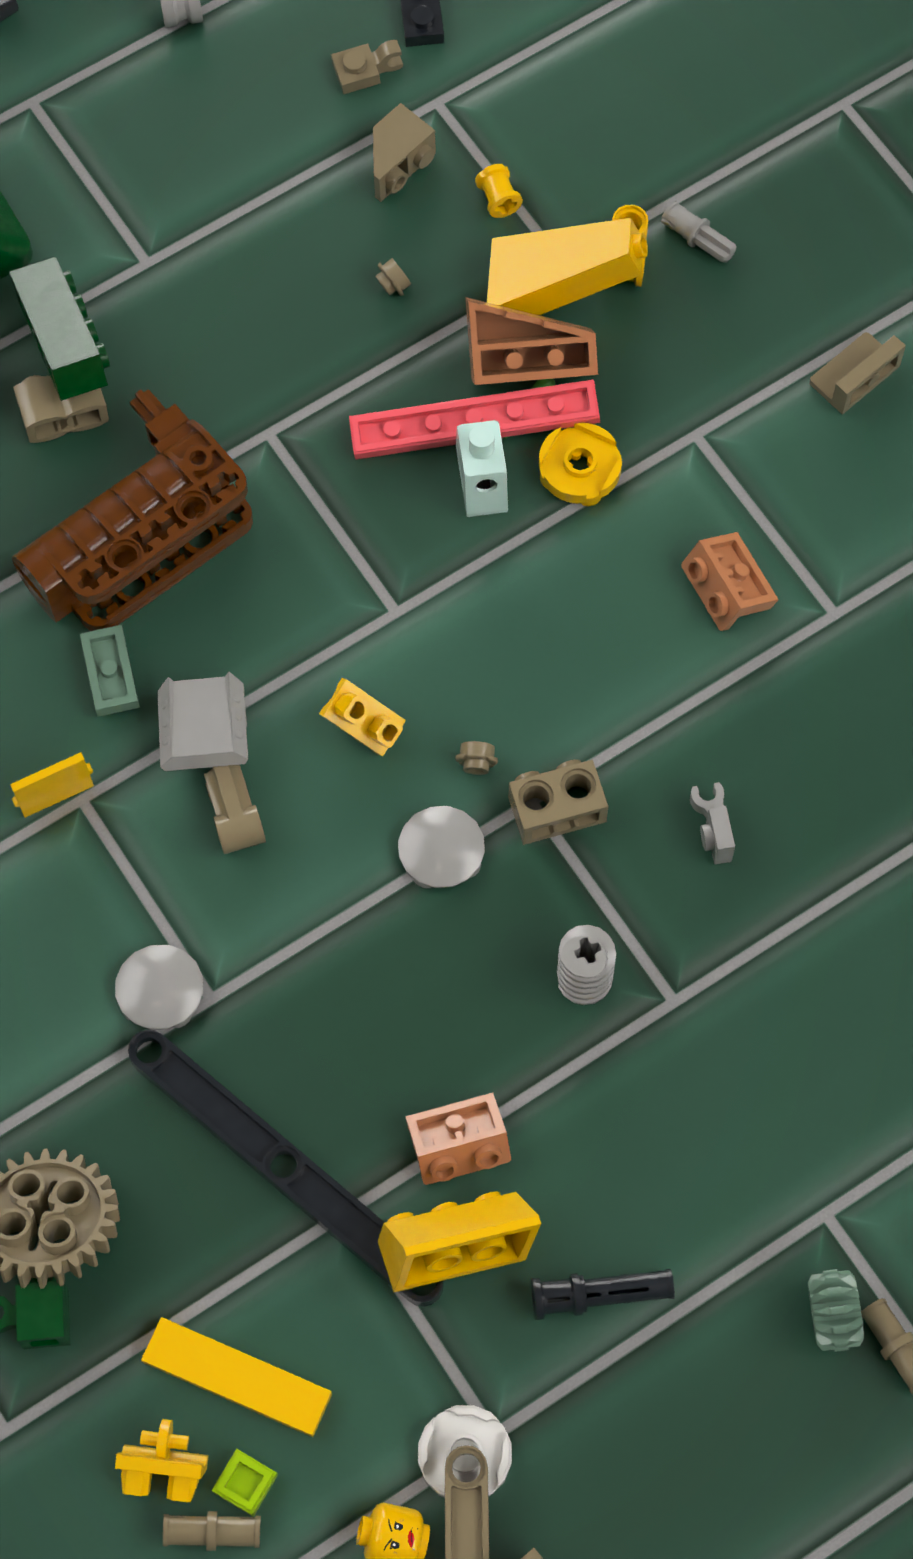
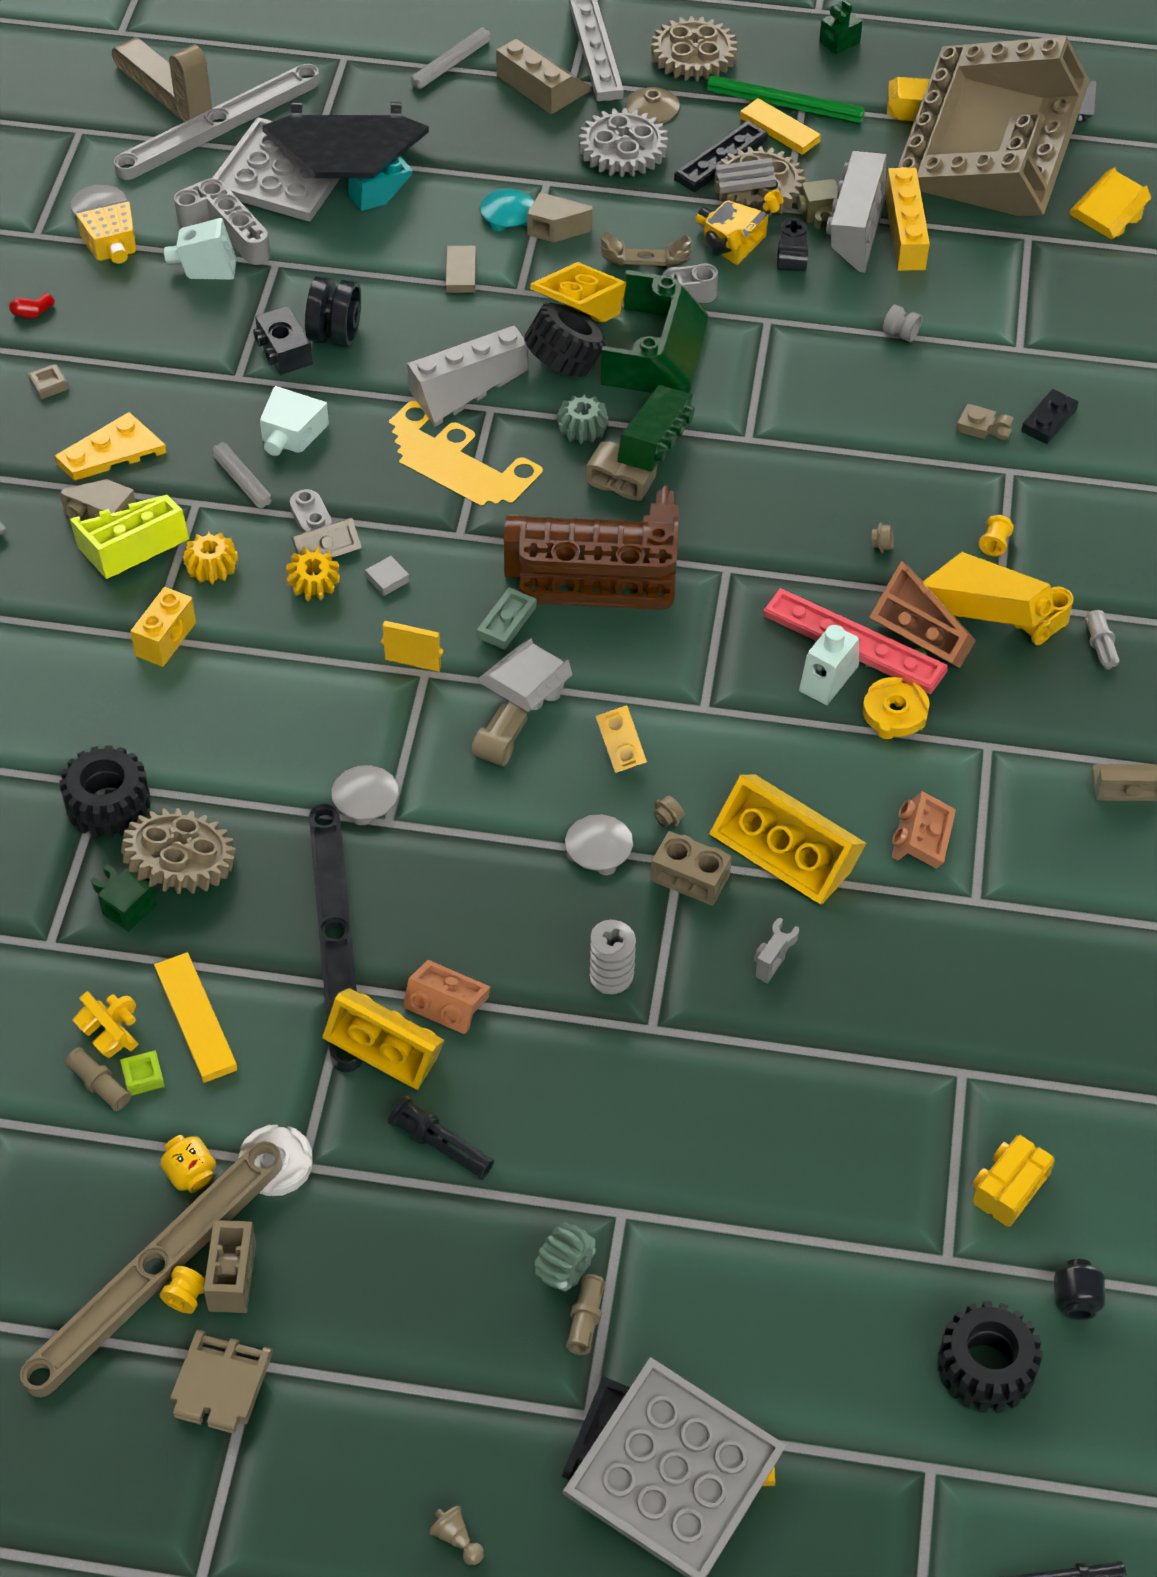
camera: 40 degrees right, 15 degrees down
(399, 149) = (954, 475): dark tan slope -> none
(615, 693) = (786, 838): none -> yellow slope

